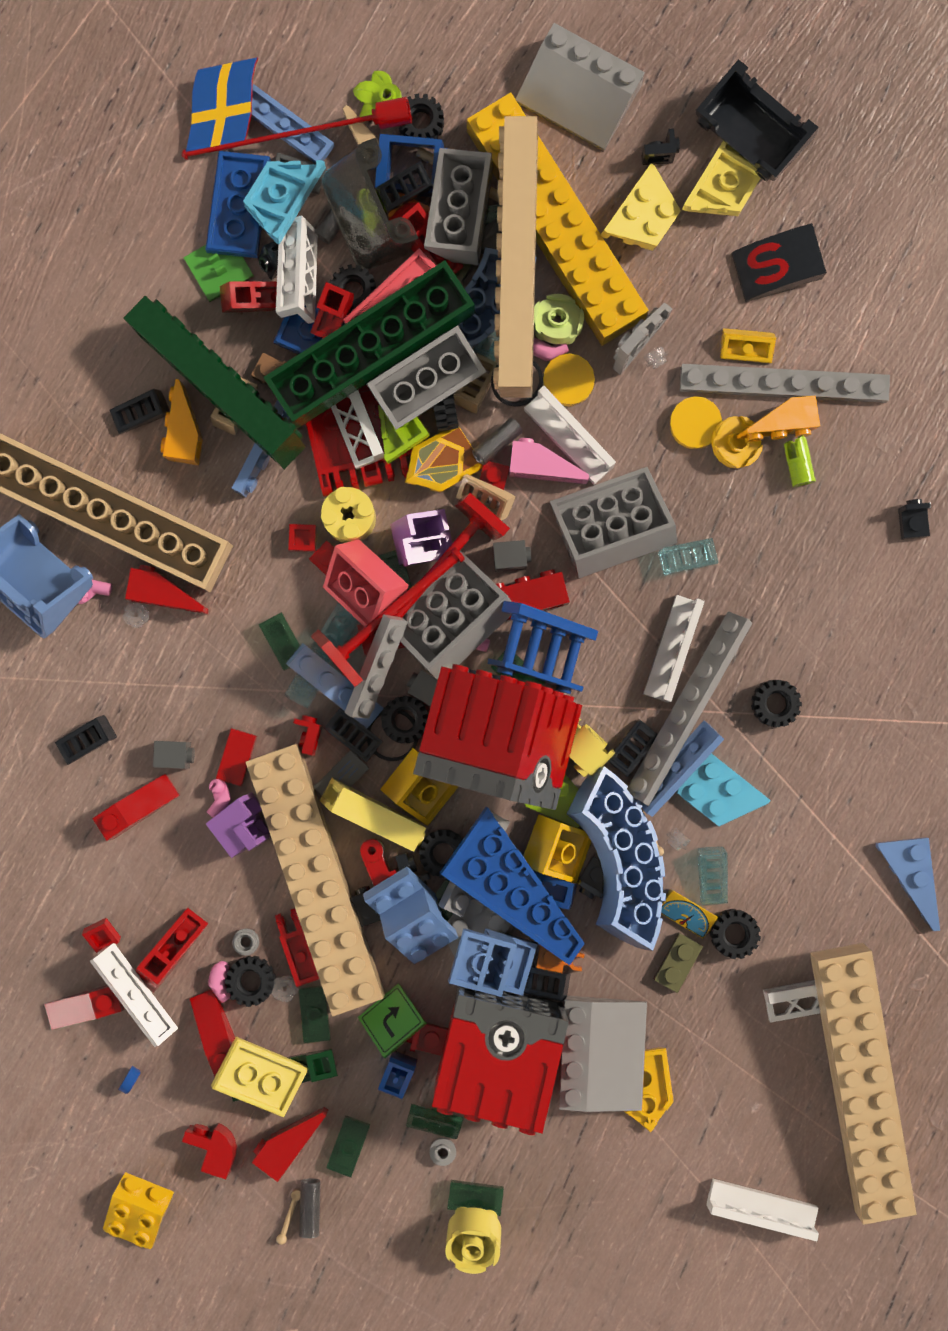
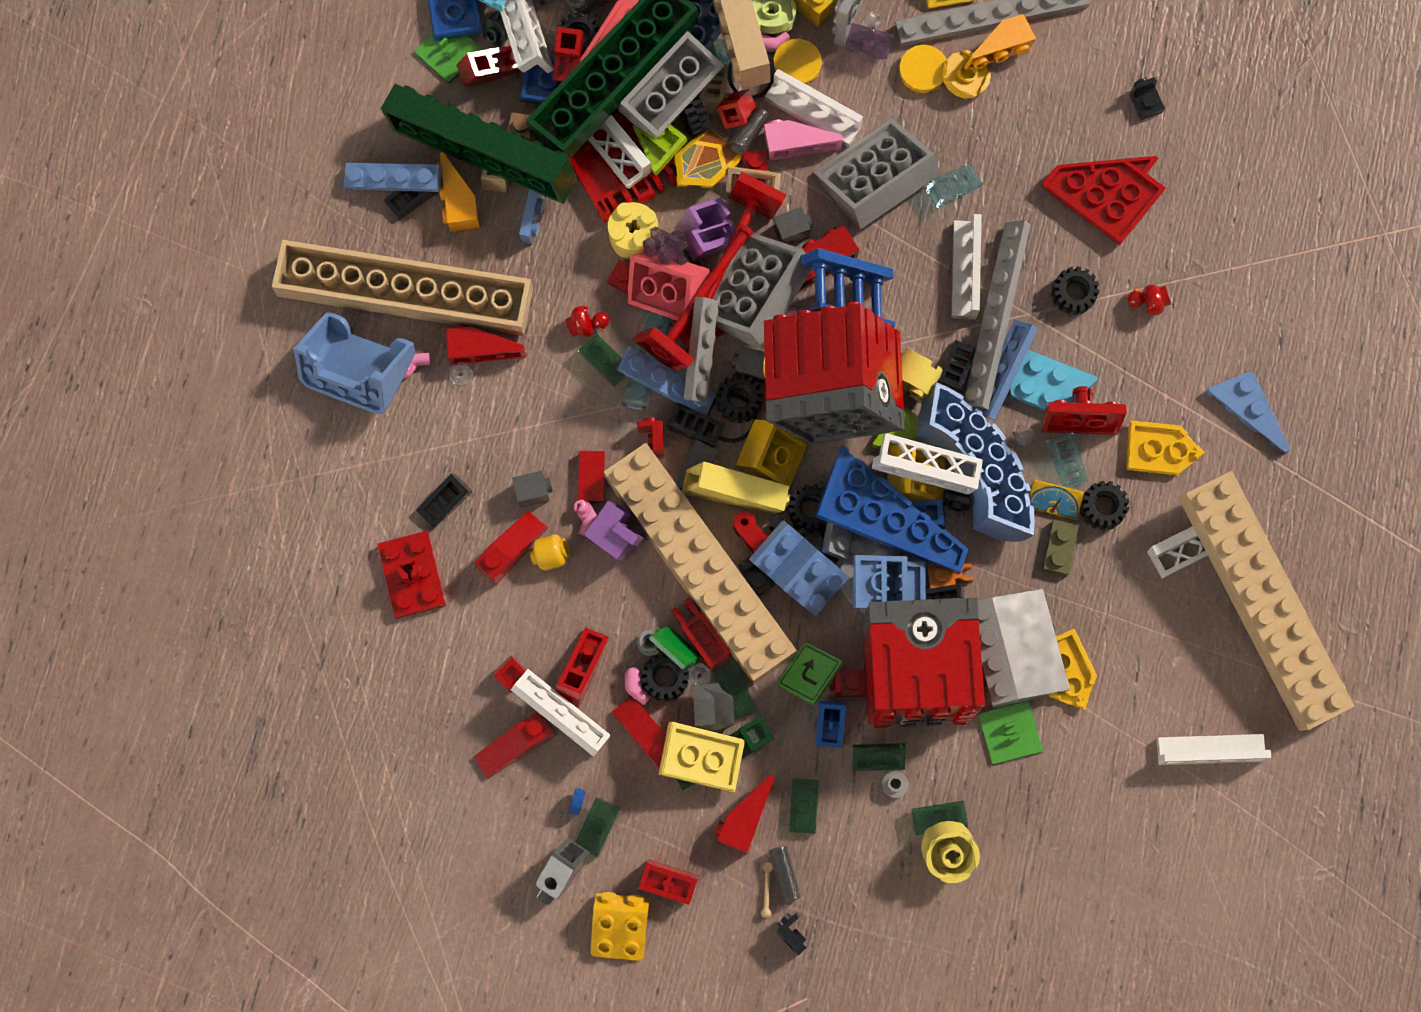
camera: 20 degrees left, 10 degrees down
(33, 806) = (411, 574): none -> red plate
(86, 1153) = (560, 870): none -> dark grey torso
(122, 390) = (392, 177): none -> medium blue plate
(142, 1110) = (597, 826): none -> clear green plate
(172, 824) = (550, 552): none -> yellow head
(194, 1186) = (668, 881): none -> red hinge
(220, 1148) = (683, 839): red brick -> none
(266, 957) = (675, 647): none -> green piece
(271, 598) = (582, 323): none -> red animal
(284, 1027) = (712, 707): none -> dark grey slope
(298, 1274) = (794, 938): none -> black bracket
(302, 538) = (596, 263): red plate -> none
(376, 546) = (667, 245): none -> hips
(489, 414) = (736, 108): none -> red brick
(561, 861) = (925, 473): none -> white fence
(571, 1134) = (1010, 732): none -> bright green piece
(648, 379) = (869, 41): none -> clear purple hips
(743, 838) = (1083, 415): none -> red plate
(799, 462) = (1028, 76): lime hinge -> none
(809, 890) = (1159, 448): none -> yellow tile
(842, 609) = (1107, 192): none -> red wing
(854, 735) = (1154, 296): none -> red animal

